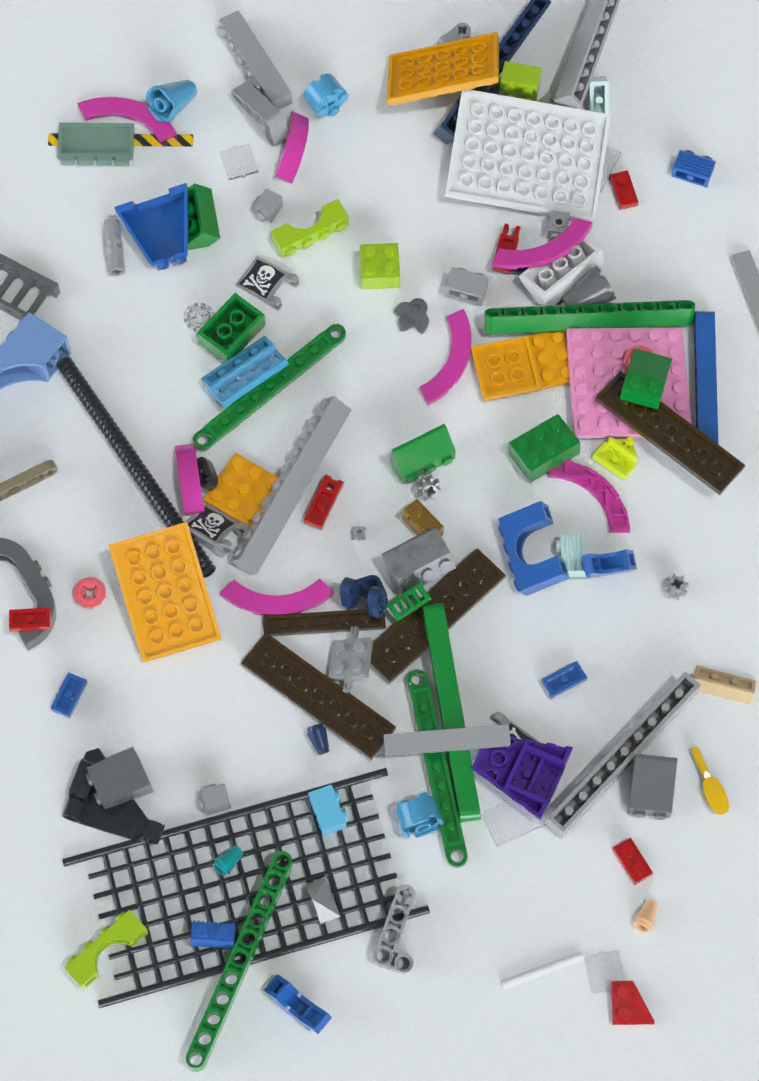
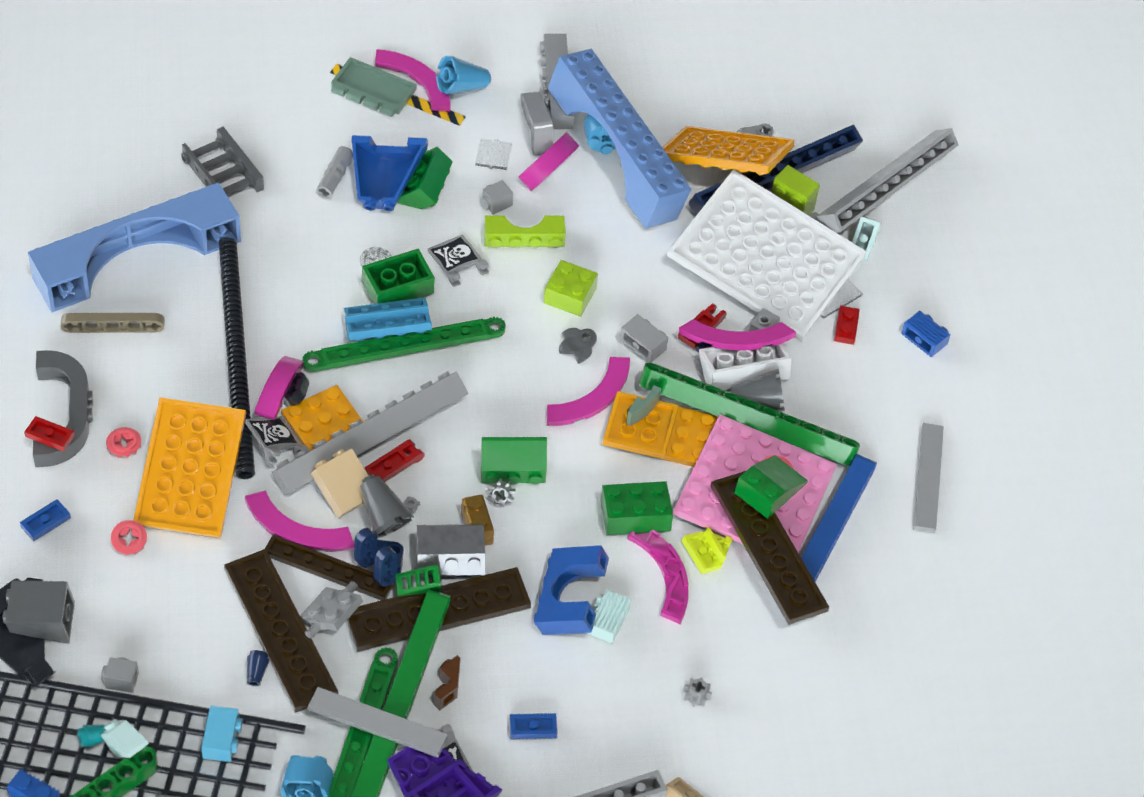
camera: 20 degrees right, 15 degrees down
(152, 668) = (122, 529): none -> coral gear
(257, 855) = (123, 738): none -> light aqua slope
(297, 542) = (341, 481): none -> tan brick
(343, 549) = (383, 506): none -> dark grey cone
(397, 130) = (652, 181): none -> medium blue arch
(477, 669) = (450, 677): none -> reddish brown slope
(502, 353) = (642, 407): none -> sand green slope
(609, 563) = (638, 638): blue arch -> none

